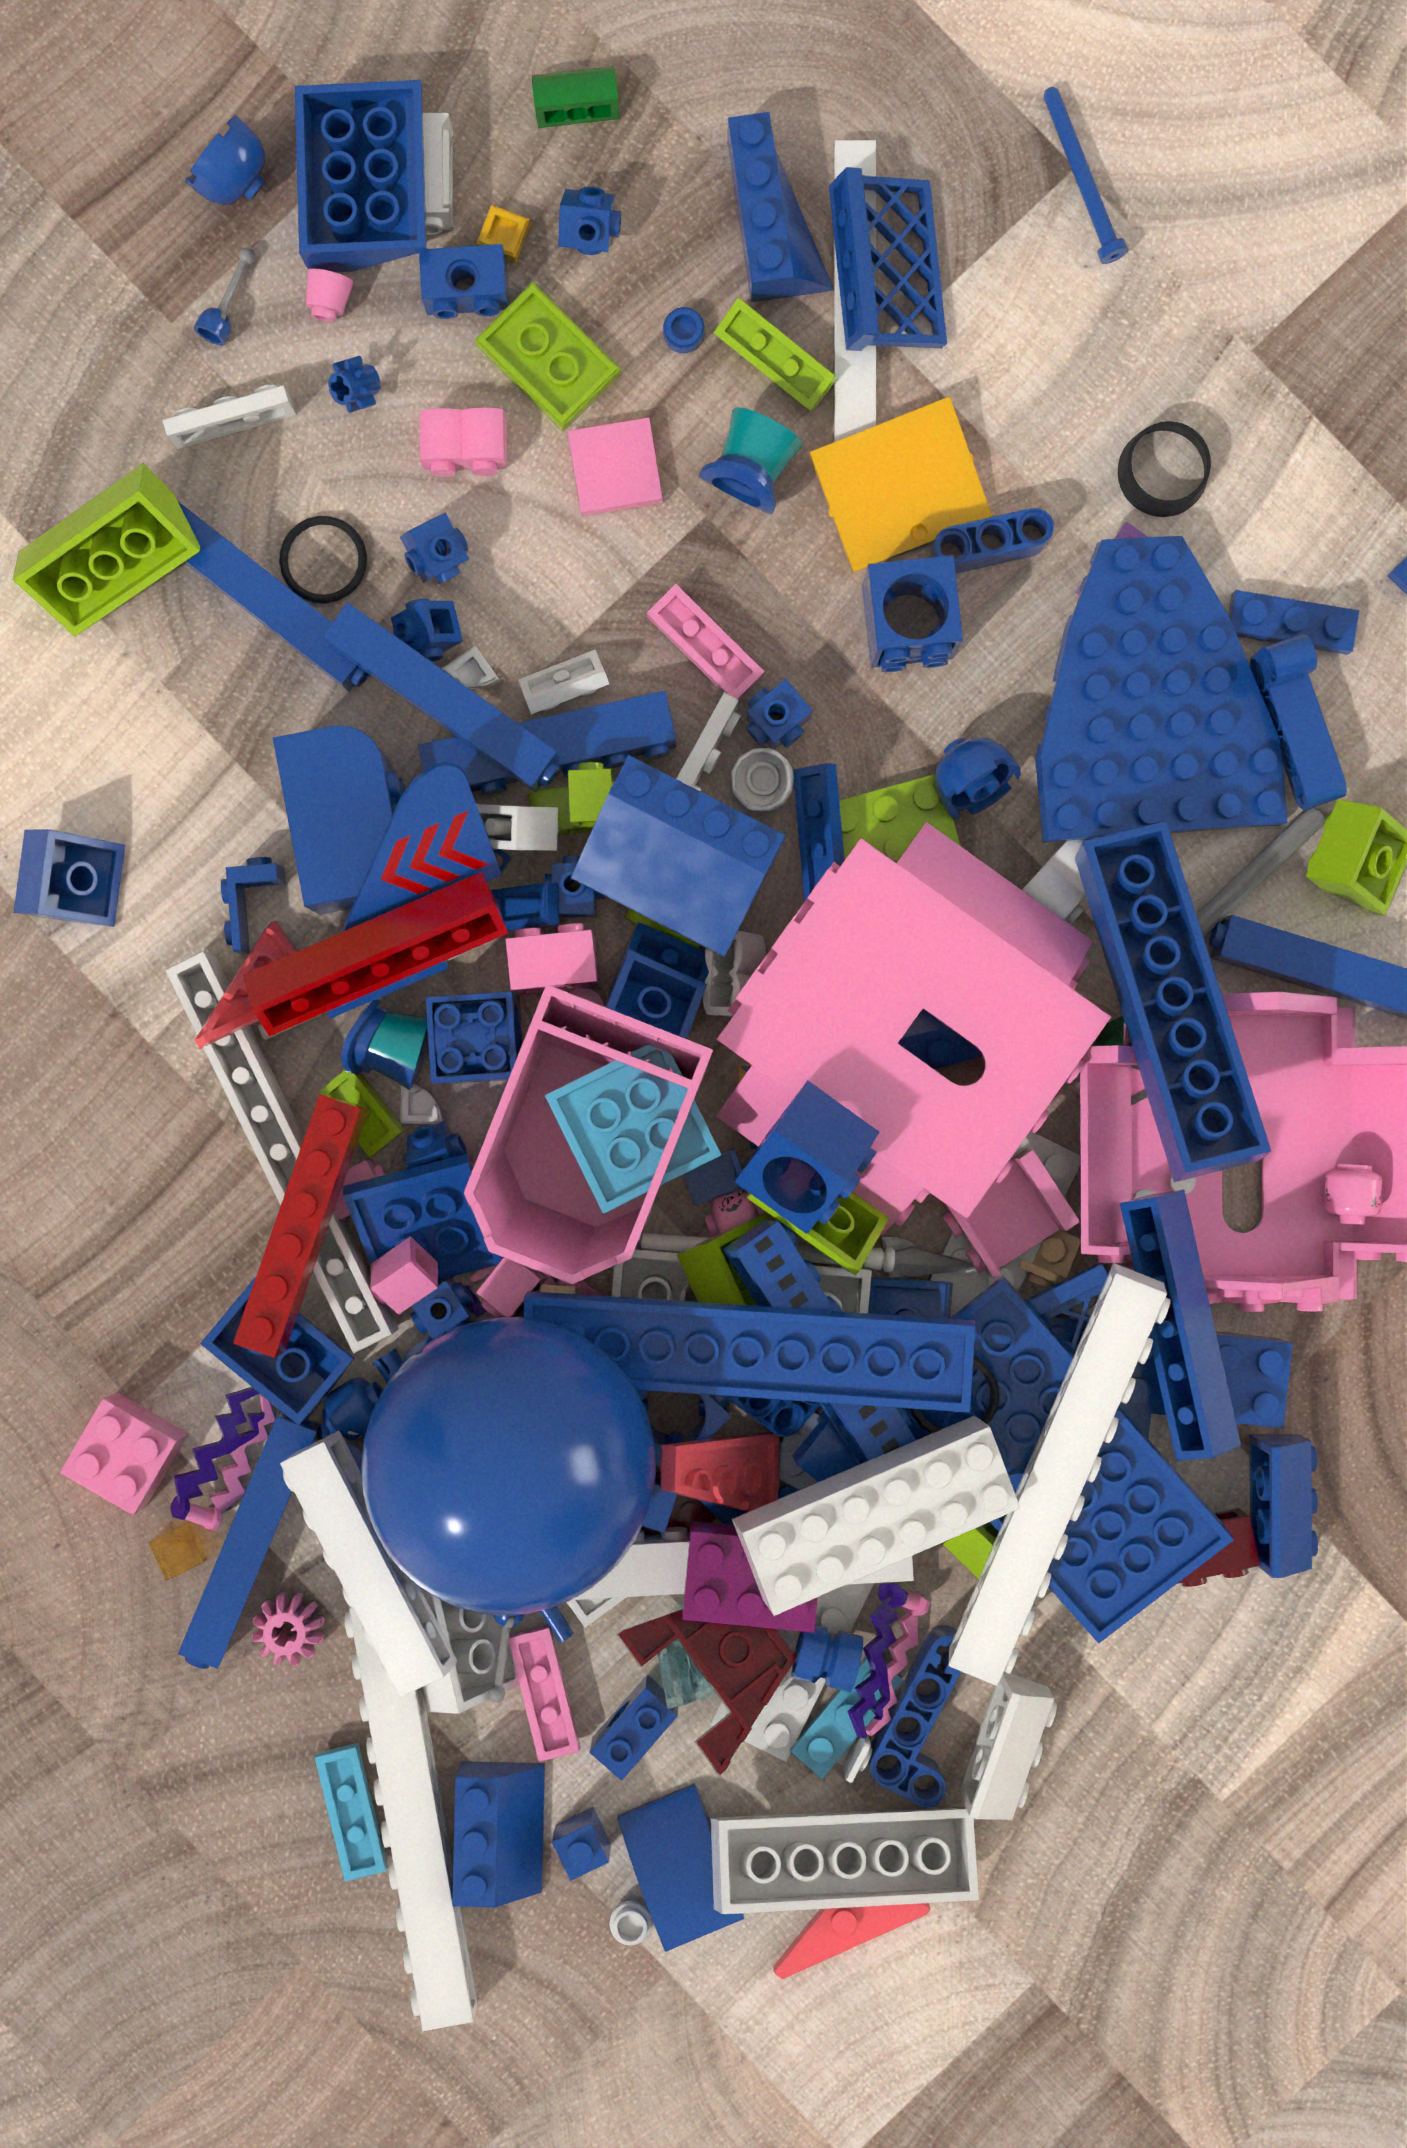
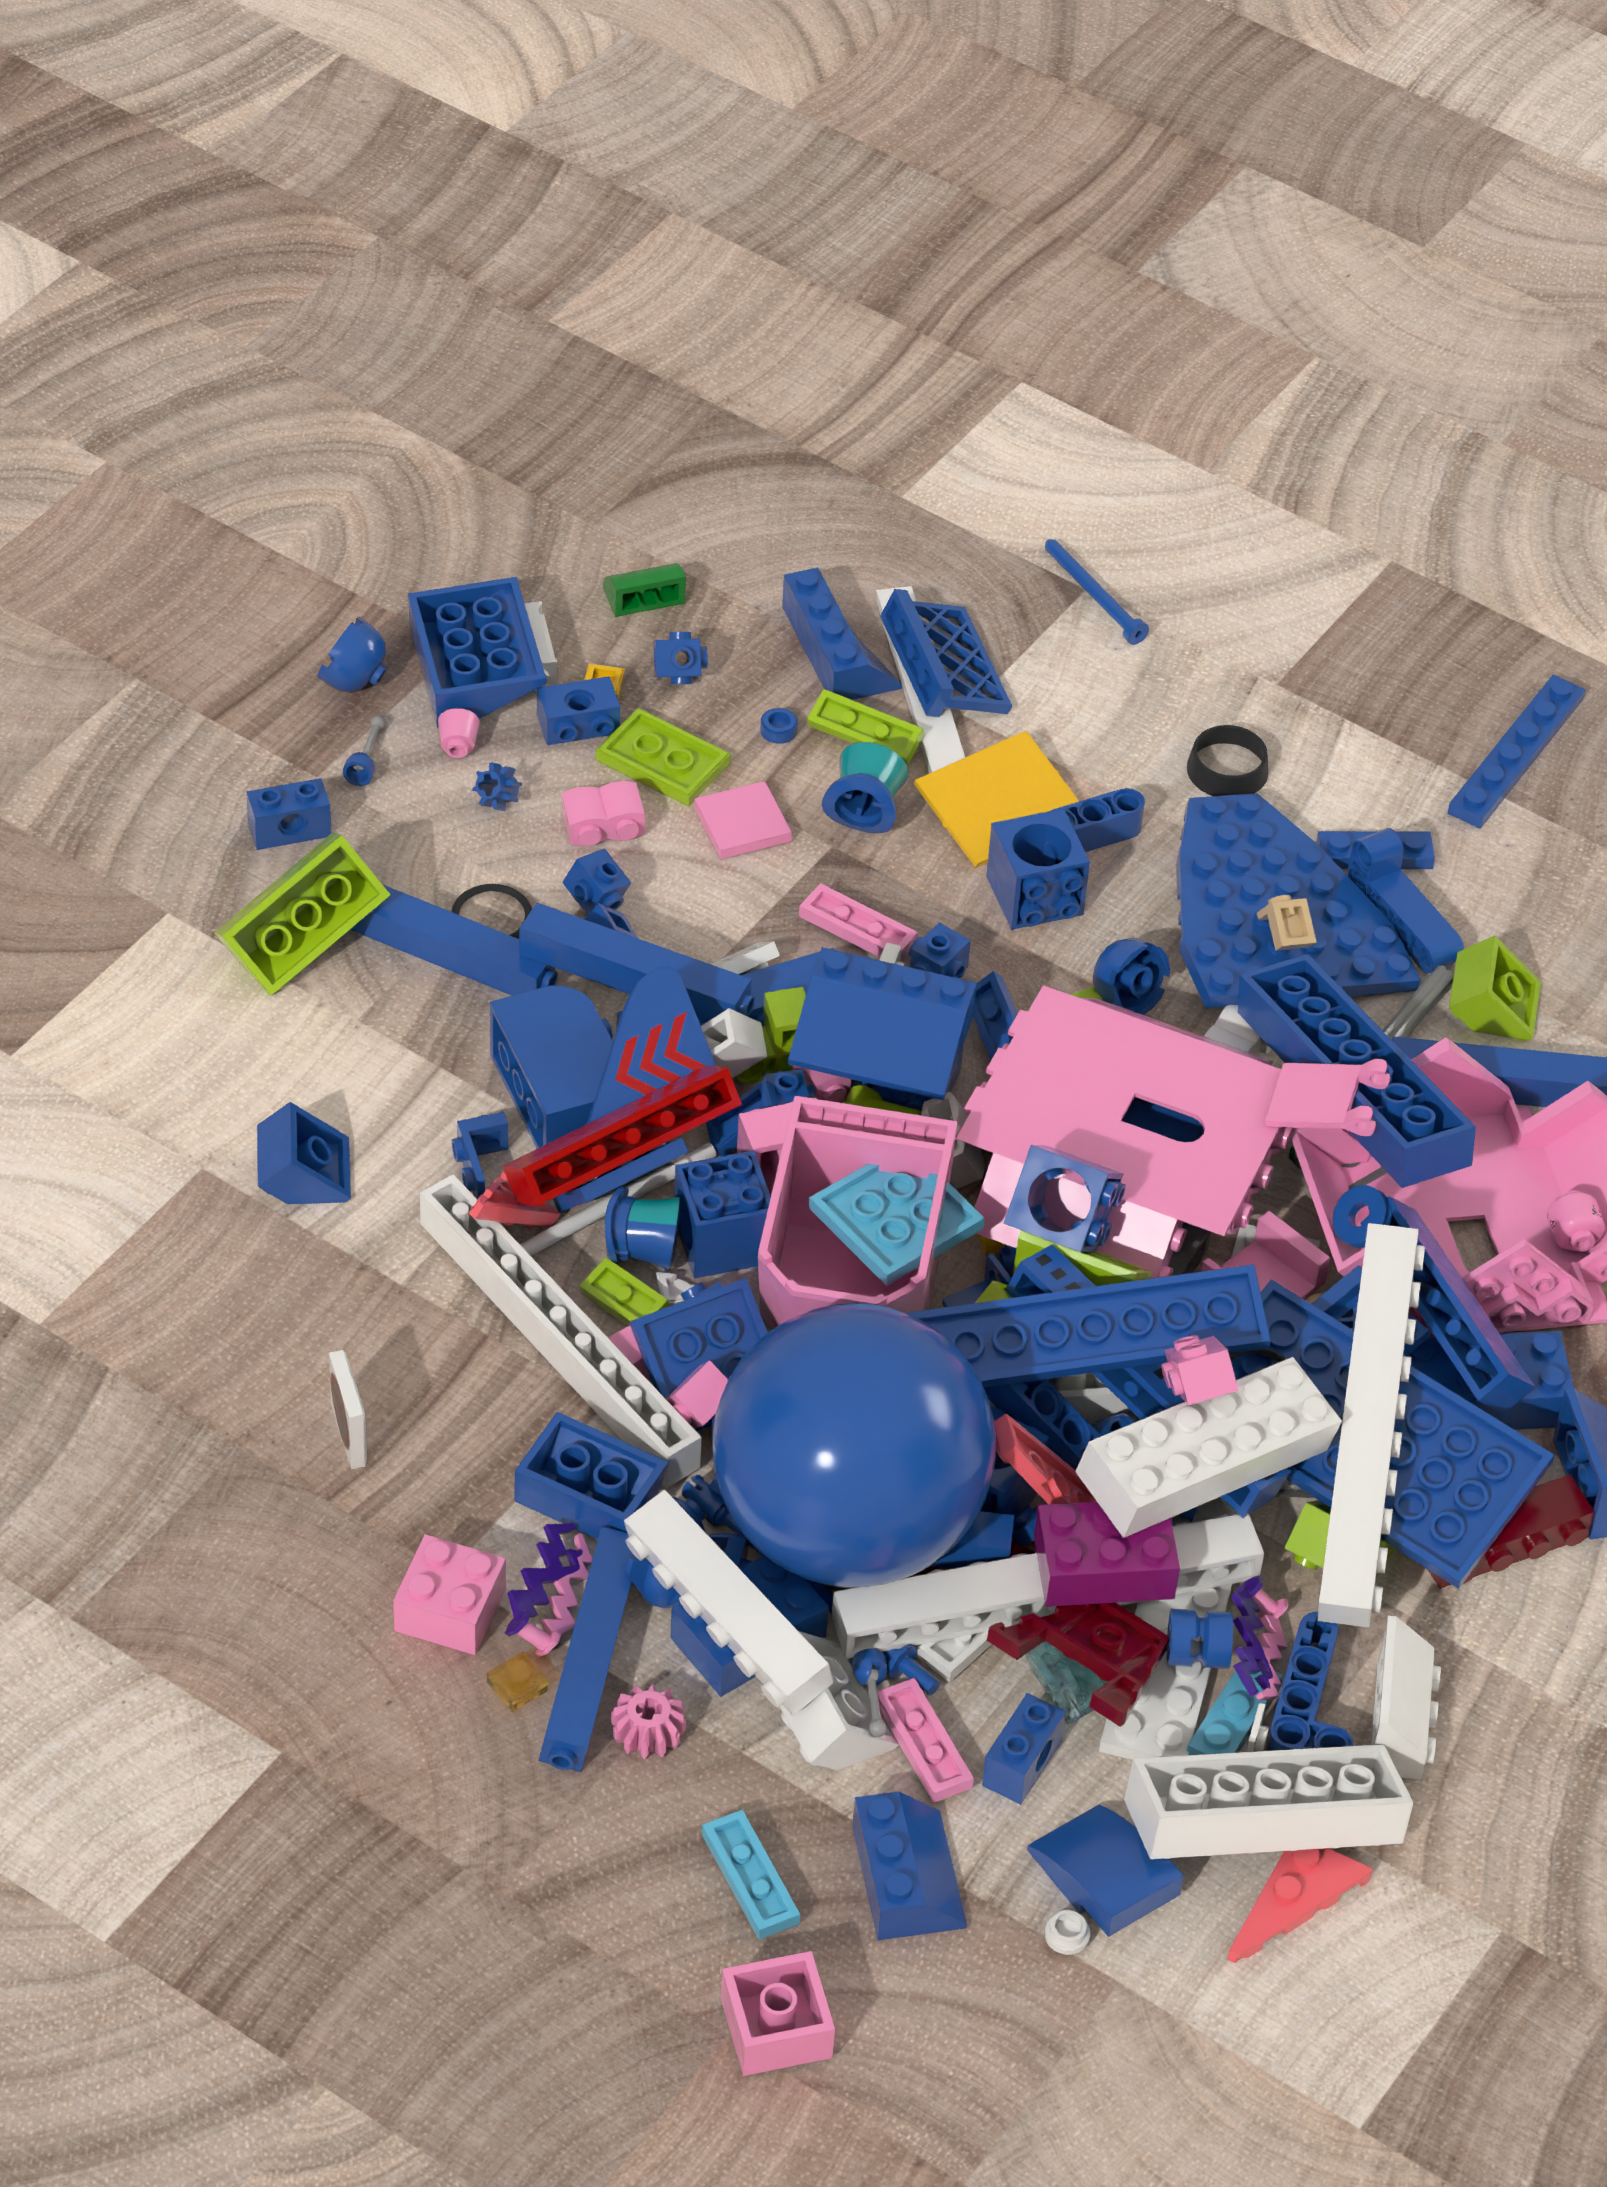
camera: 20 degrees left, 40 degrees down
(54, 1225) = (348, 1409): none -> white tile
(123, 388) = (289, 813): none -> blue brick
(229, 416) = (392, 821): white plate -> none
(301, 1225) = (598, 1348): red brick -> none
(339, 1982) = (777, 2013): none -> bright pink brick
(418, 1842) = (817, 1866): white brick -> none
(581, 1844) = (998, 1857): blue brick -> none
(882, 1452) = (1198, 1369): none -> bright pink brick
(1115, 1061) = (1324, 1096): none -> bright pink flag
(1140, 1197) = (1347, 1208): none -> blue piece
(1160, 754) = (1289, 922): none -> tan bracket

